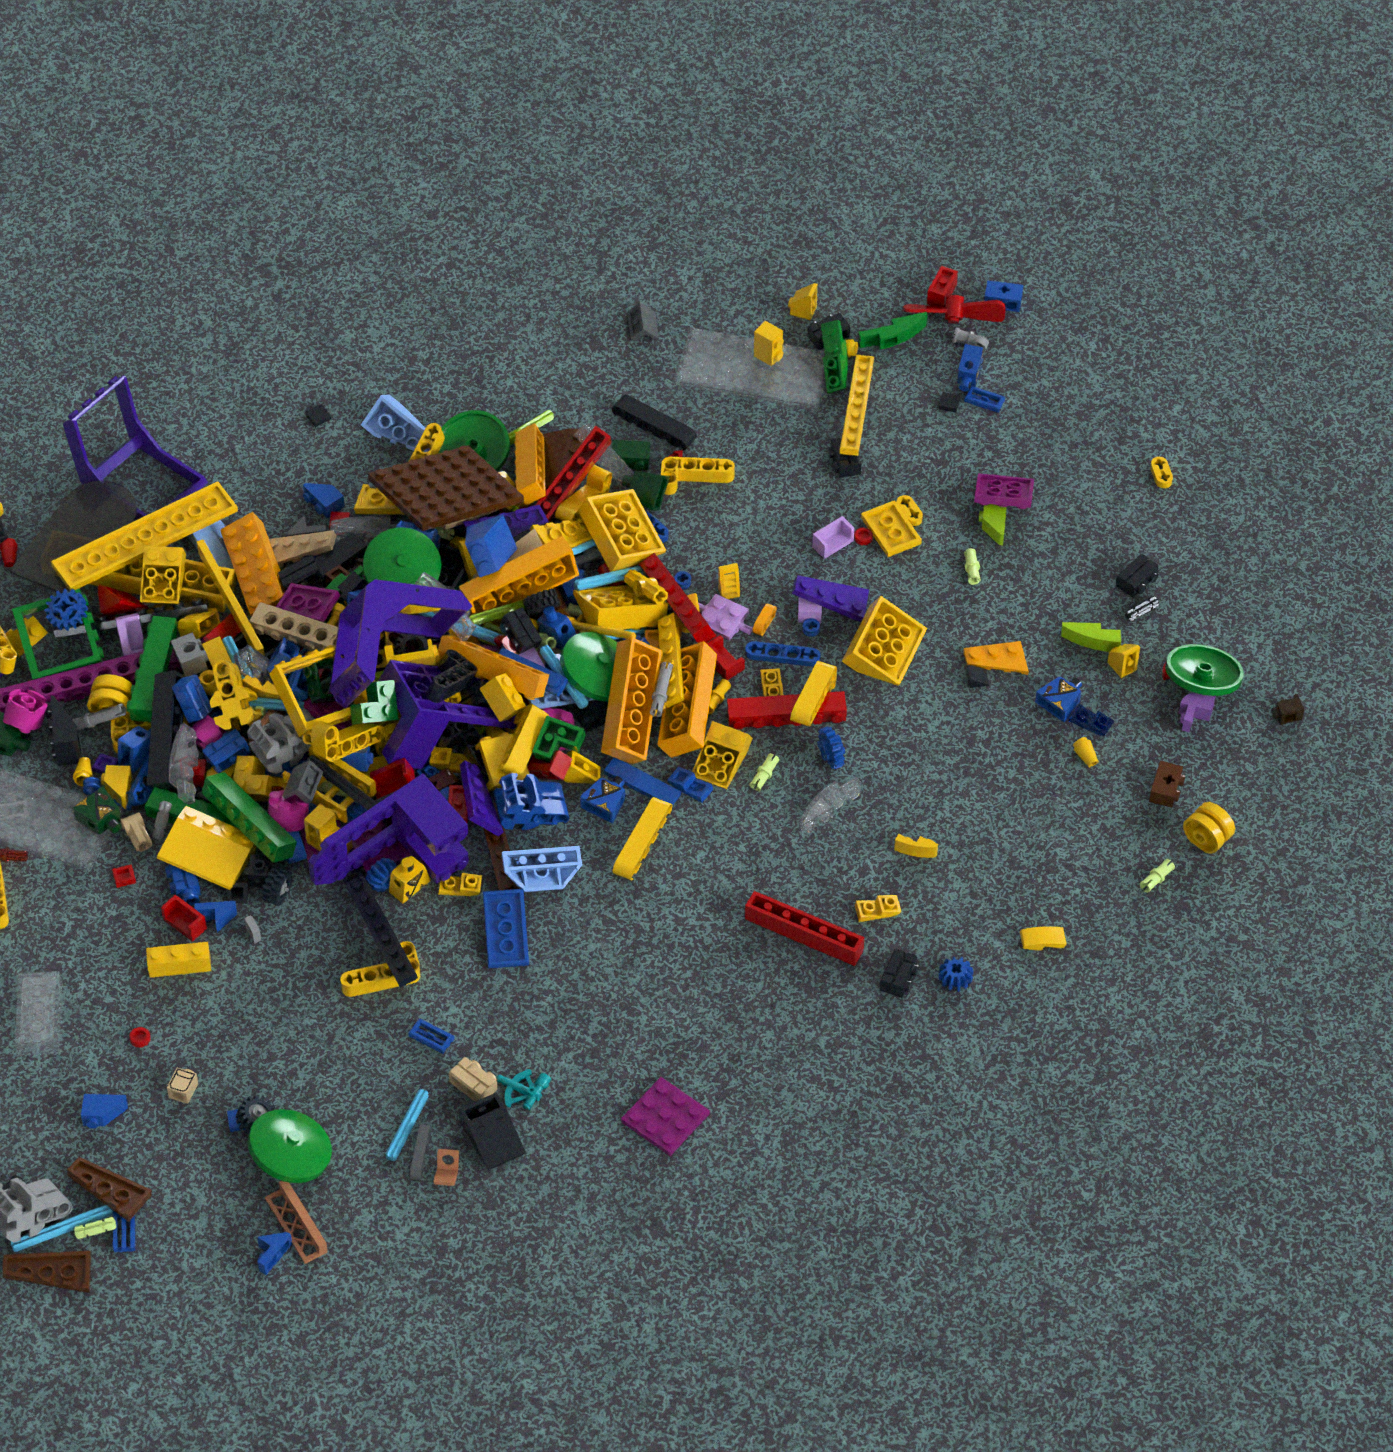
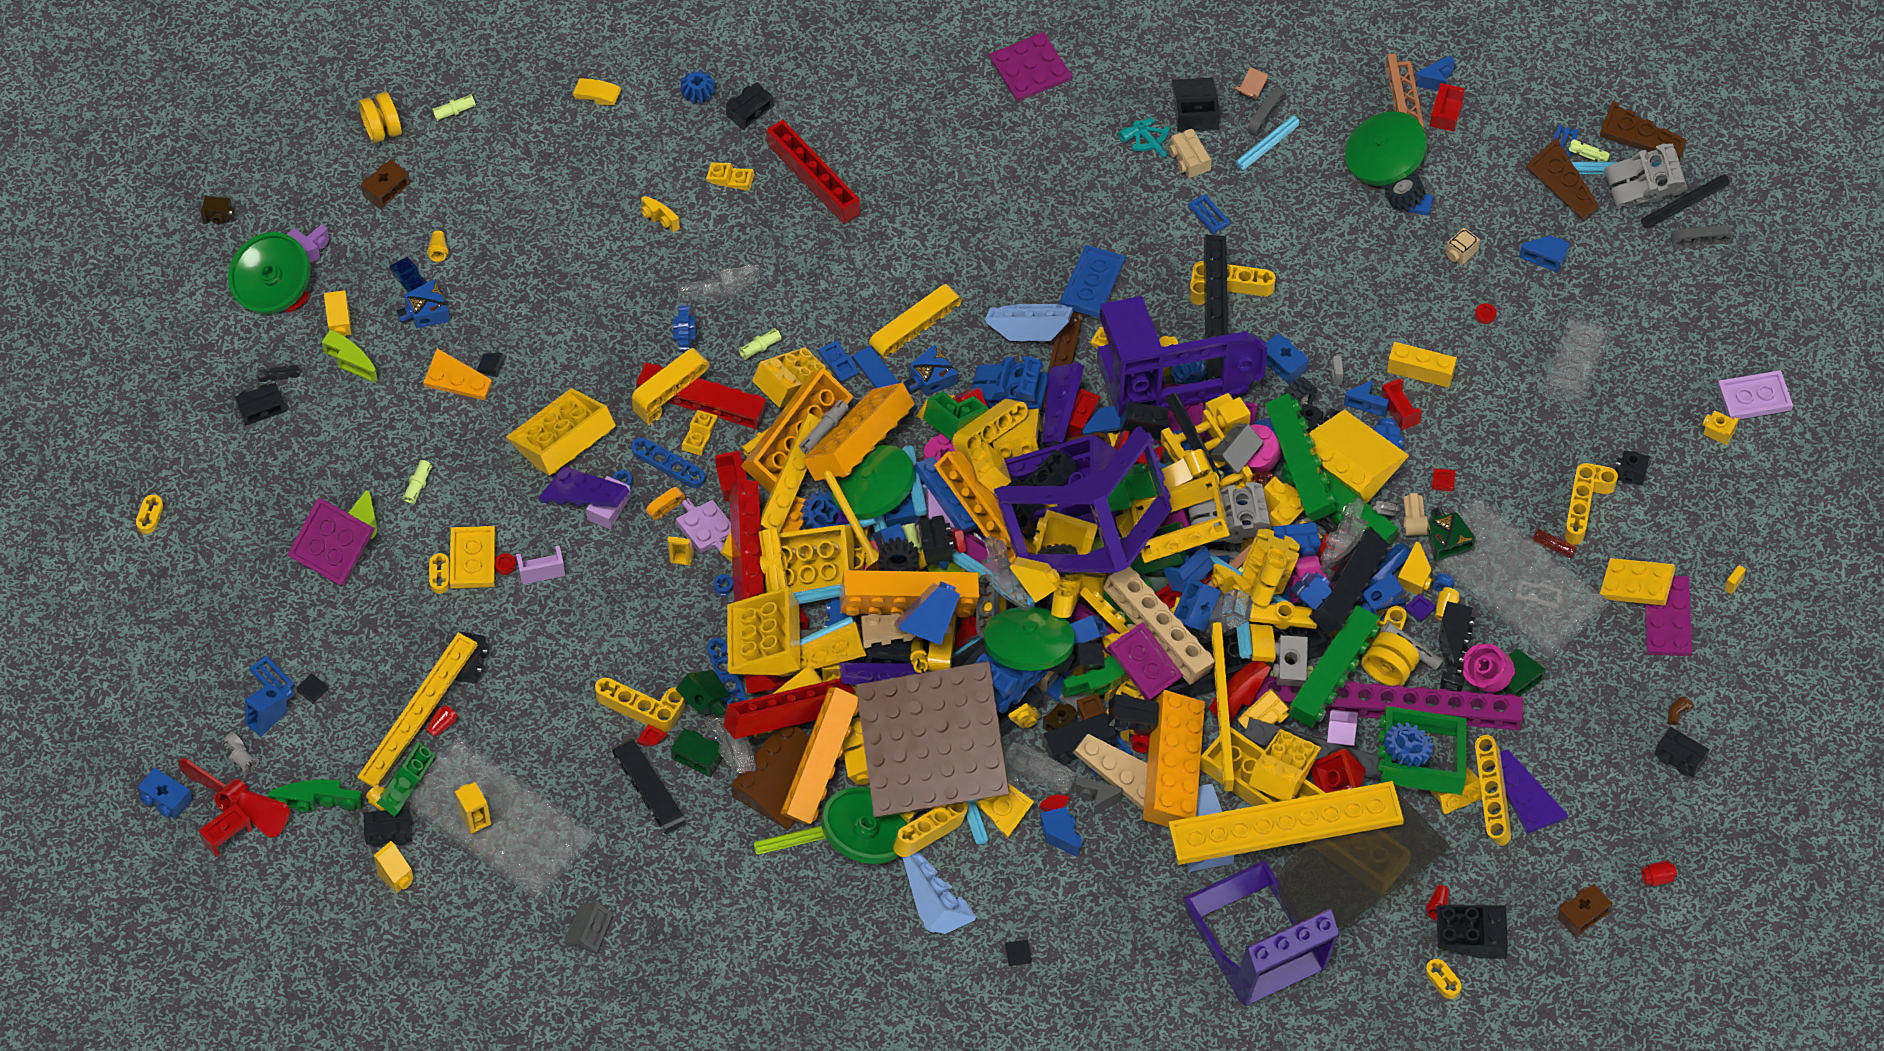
camera: 155 degrees left, 5 degrees up
(248, 1219) = (1447, 107): none -> red panel
(304, 922) = (1286, 359): none -> blue brick
(836, 413) = (441, 721): none -> red cone

